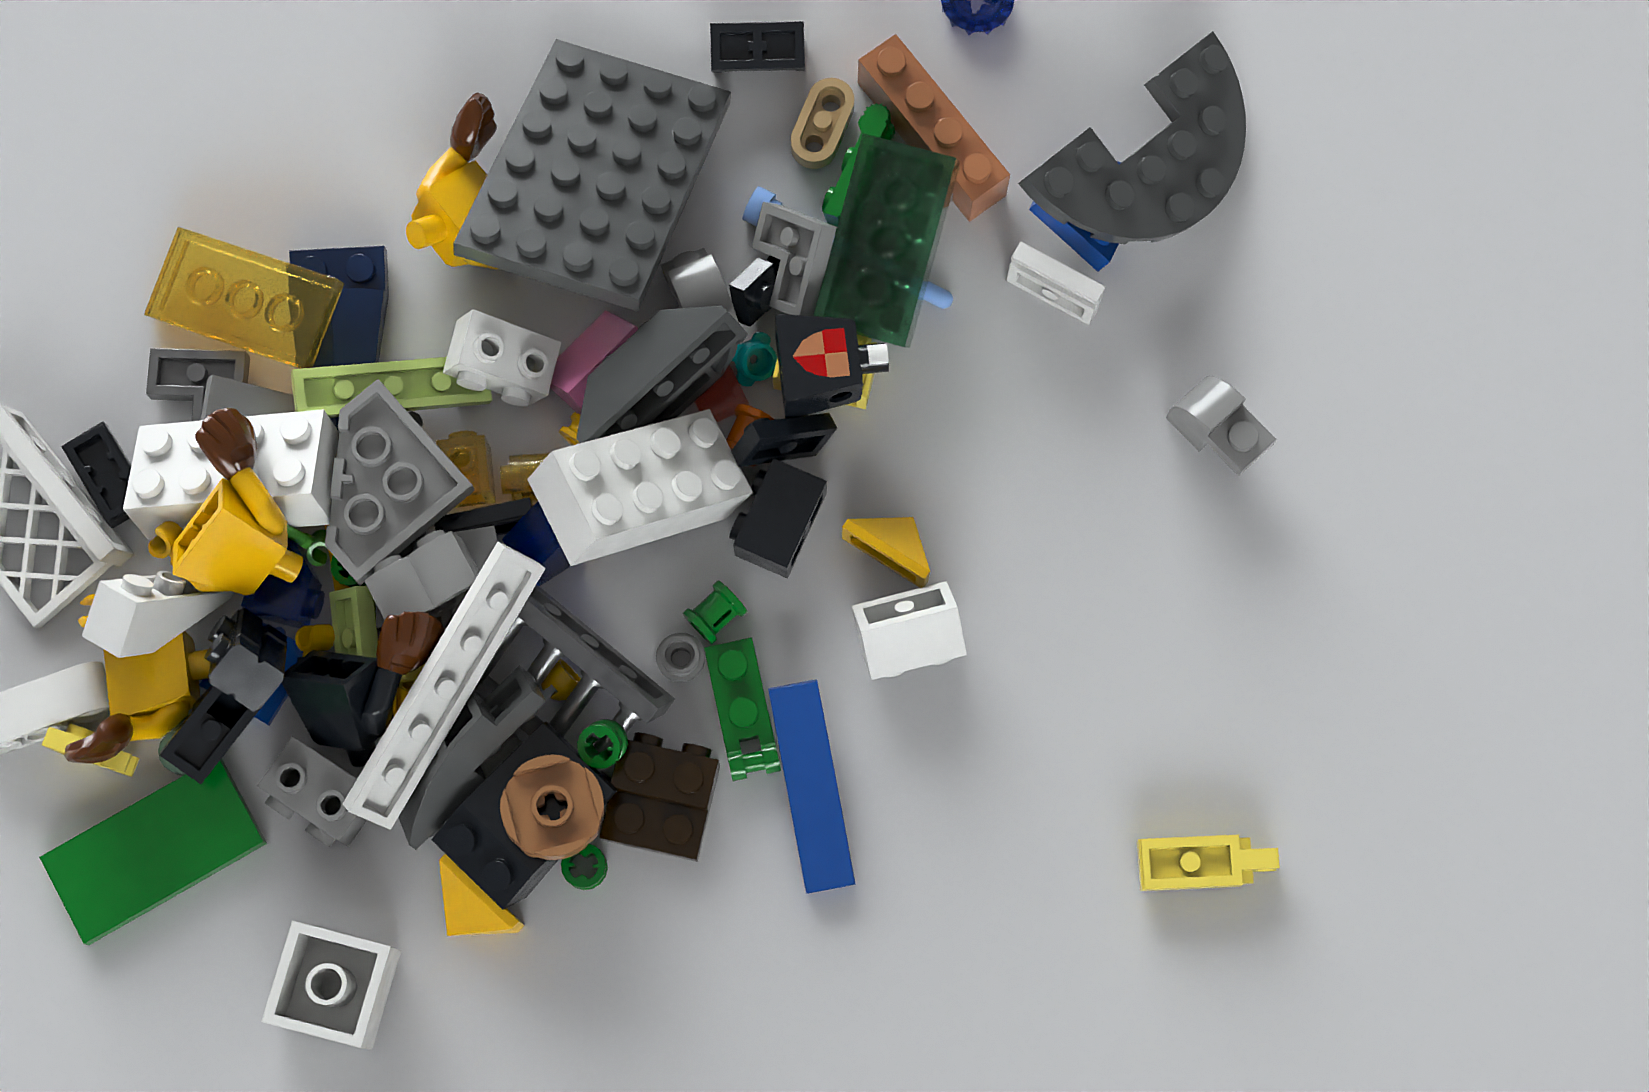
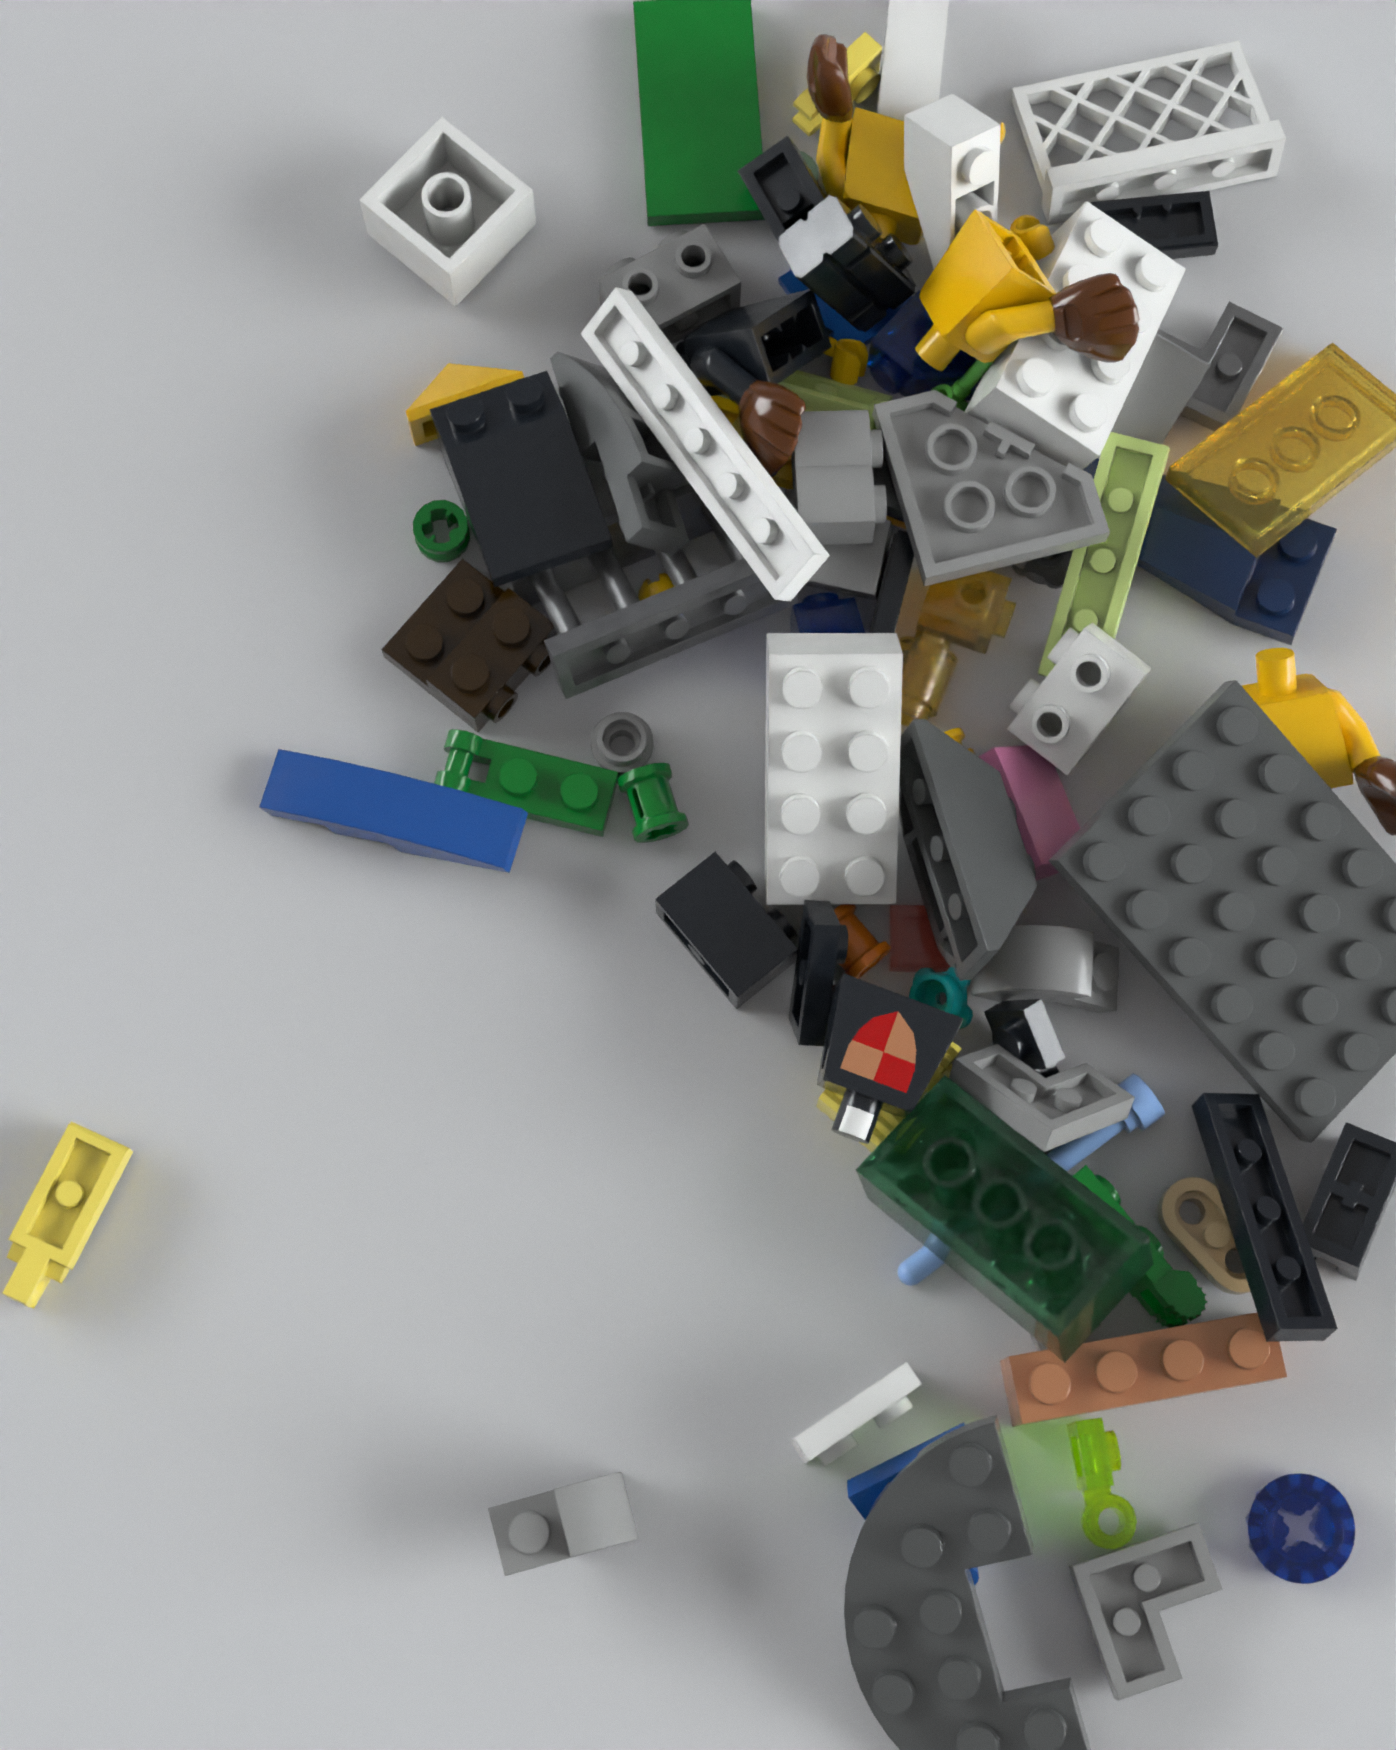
camera: 115 degrees right, 0 degrees up
(526, 793) = (482, 466): medium nougat plate -> none
(604, 758) = (551, 576): green bush -> none
(799, 92) = (1263, 1218): none -> black plate
(892, 543) = (628, 1049): yellow slope -> none
(909, 630) = (510, 1006): white brick -> none
(1007, 131) = (1094, 1459): none -> clear neon green plate
(1069, 79) = (1124, 1598): none -> light grey plate

